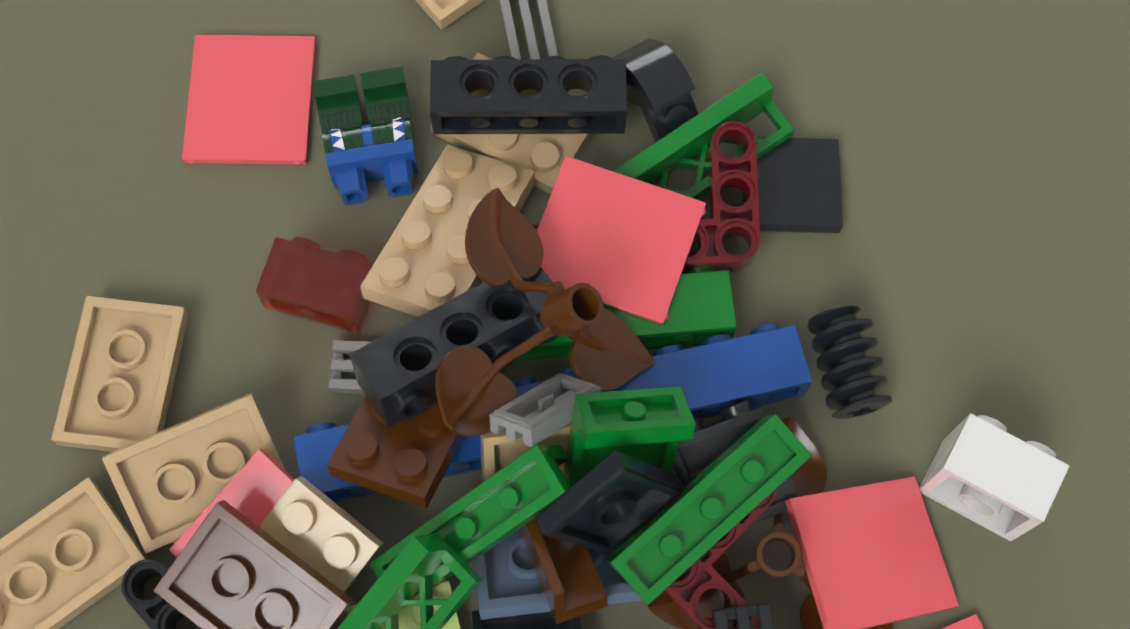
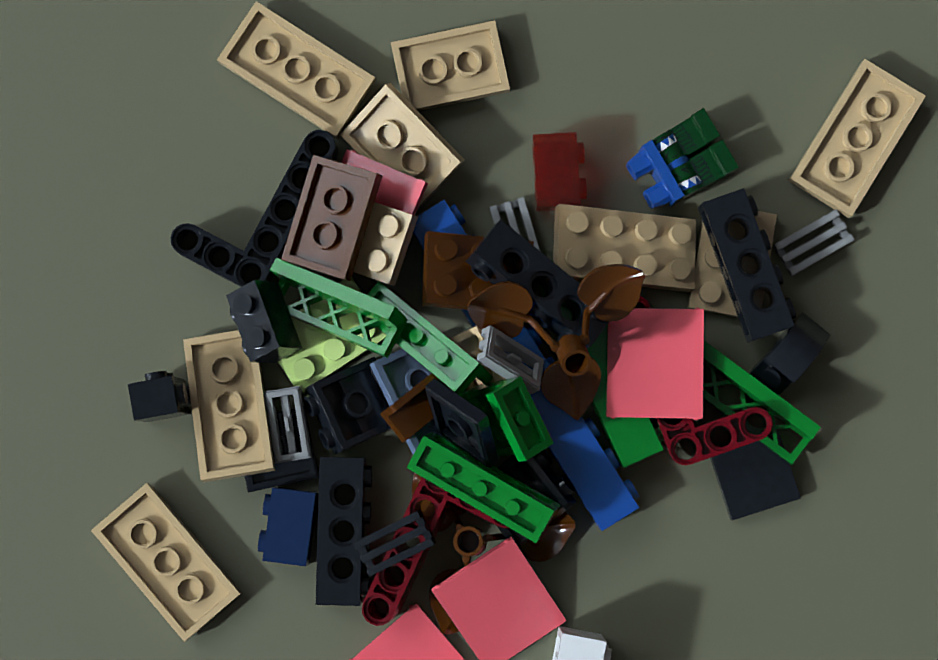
camera: 75 degrees right, 15 degrees up
(250, 100) = (684, 65): coral piece -> none
(846, 362) = (628, 553): black piece -> none

